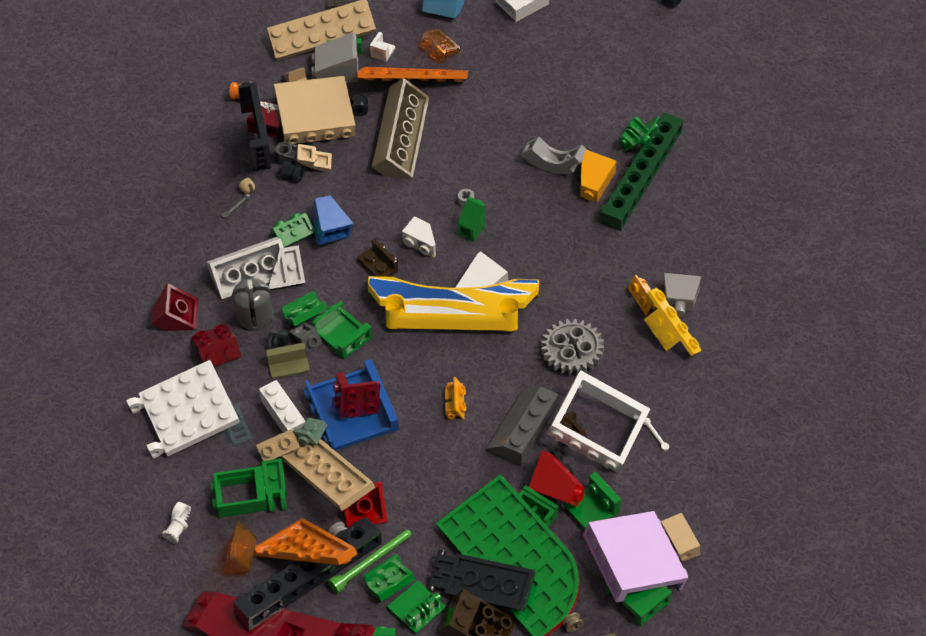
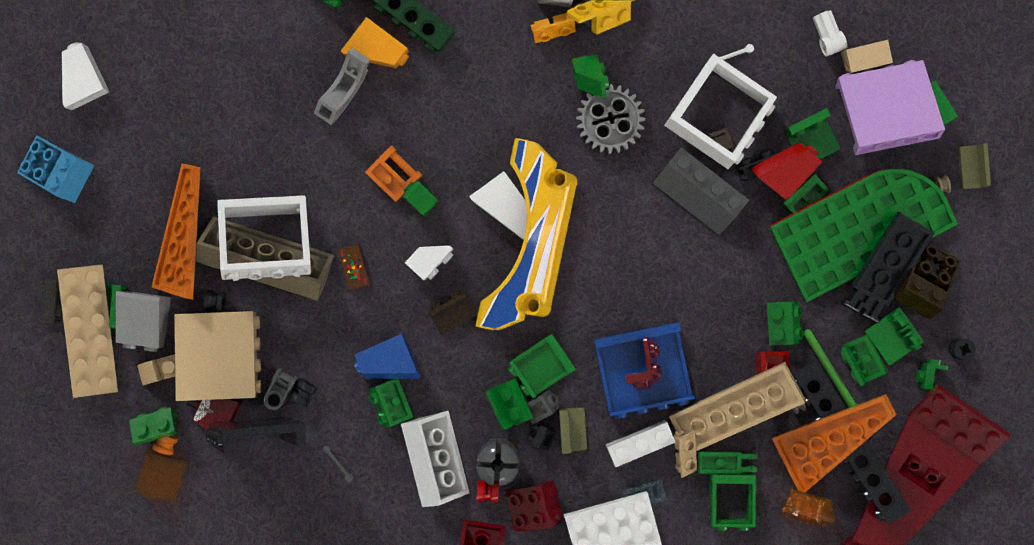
camera: 85 degrees left, 35 degrees up
(210, 96) = (161, 476): none -> clear orange slope
(224, 308) = (493, 491): none -> red wheel
(247, 185) = (312, 447): tan hinge -> none
(250, 73) = (153, 426): none -> green bracket
(287, 268) = (449, 416): white wing -> none
(311, 431) = (680, 418): sand green bracket -> none
(314, 159) = (291, 366): tan slope -> none
(380, 49) = (126, 261): white panel -> none
(405, 191) = (354, 267): none -> reddish brown tile
(413, 512) = (784, 323): none -> green bracket
(435, 93) = (263, 207): none -> white window
(438, 45) = (134, 191): clear orange bracket -> none
(455, 392) = (645, 254): light orange hinge -> none
(464, 192) = (379, 192): light grey bush -> none
(489, 196) = (387, 178): none -> orange plate
(608, 321) = (589, 75): none -> green slope
(693, 505) = (831, 38): none -> white piece

